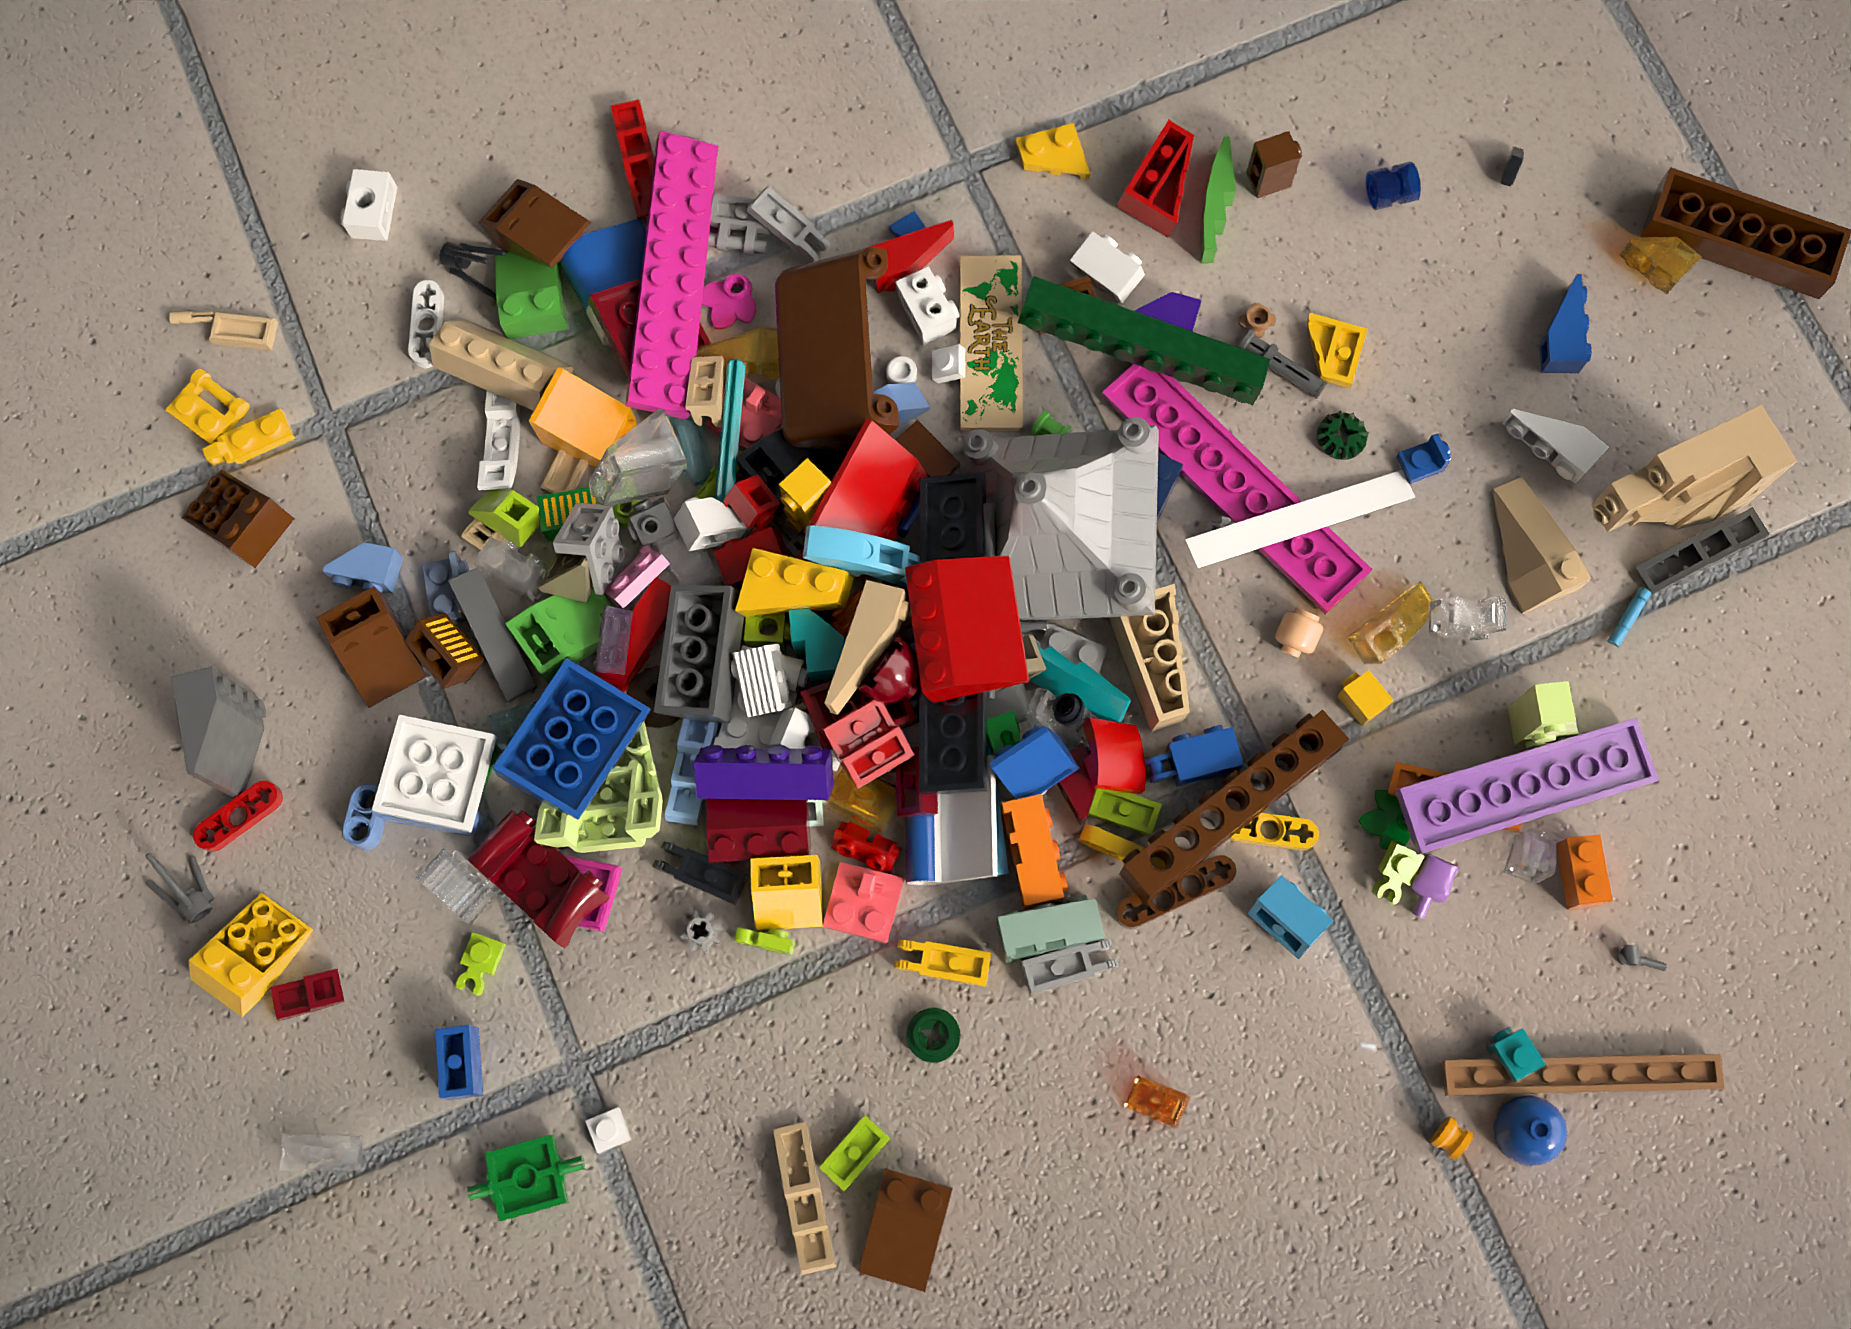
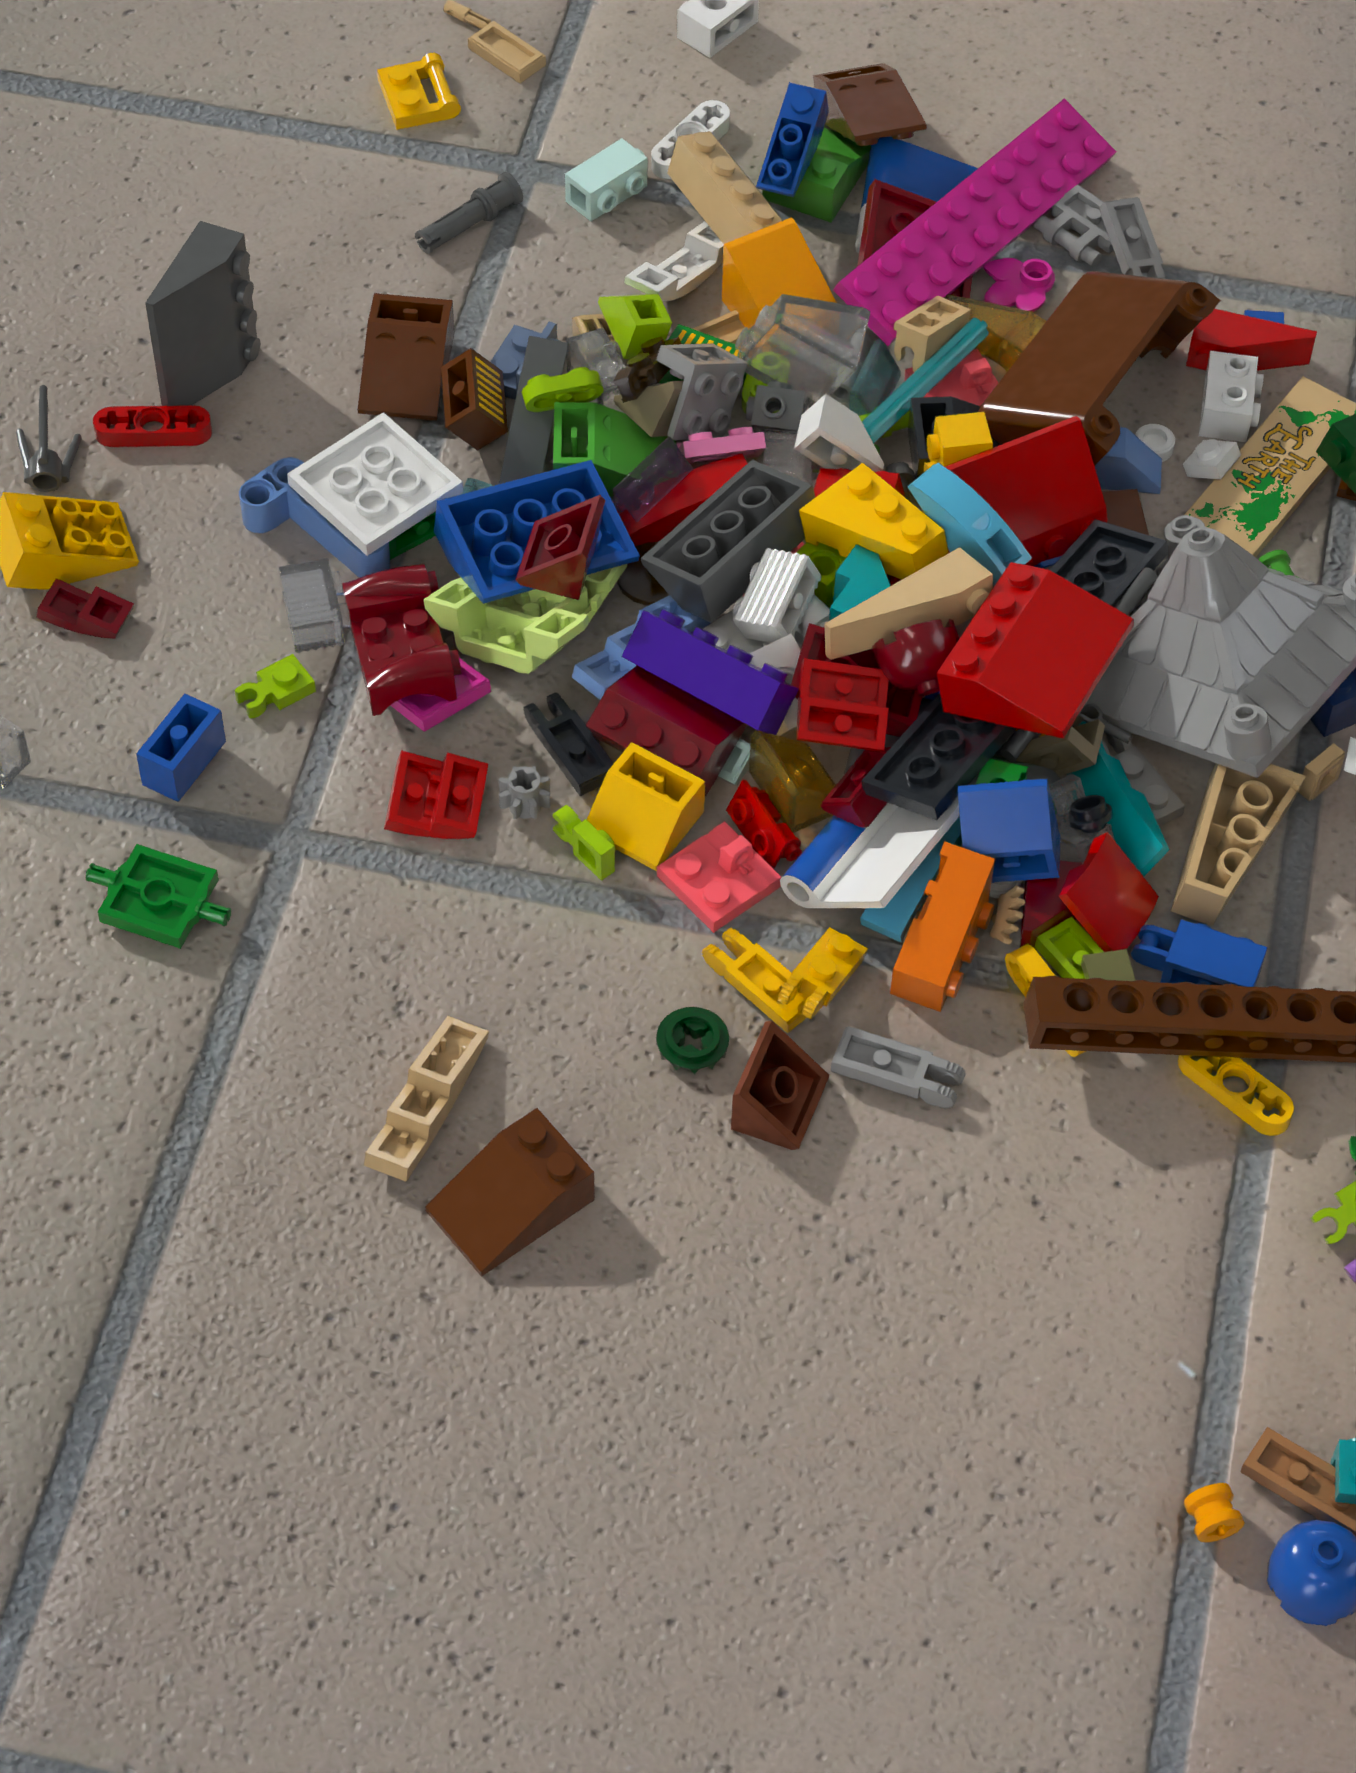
camera: 30 degrees right, 20 degrees down
(238, 518) = (370, 189): reddish brown slope -> none
(250, 439) = (436, 137): yellow hinge -> none
(326, 478) = (482, 206): none -> dark grey pin
(366, 567) = (473, 294): medium blue slope -> none
(397, 400) = (606, 179): none -> light aqua brick
(460, 257) = (766, 103): black plant -> none
(495, 621) = (575, 386): none -> lime plate
(513, 301) = (794, 139): none -> blue slope
(547, 563) = (643, 369): none -> dark brown hinge
(604, 751) = (562, 549): none -> dark red slope
(608, 1130) = (276, 911): white plate -> none
(636, 152) = (1028, 103): red slope -> none
(645, 971) = (436, 796): none -> red slope
(752, 502) = (894, 448): red brick -> none
(854, 1153) = (516, 1090): lime plate -> none
(980, 933) = (823, 971): none -> yellow hinge
(1013, 1036) = (777, 1090): none -> copper slope
(1049, 928) = (899, 1005): wedge -> none
(1060, 810) = (1007, 915): none -> tan piece
(1152, 812) = (1108, 966): none -> olive tile
(1157, 1102) = (894, 1260): clear orange slope -> none
(1174, 564) = (1322, 772): none -> tan tile
(1177, 895) = (1076, 1083): reddish brown beam -> none
(1290, 916) = (1191, 1169): dark azure brick -> none

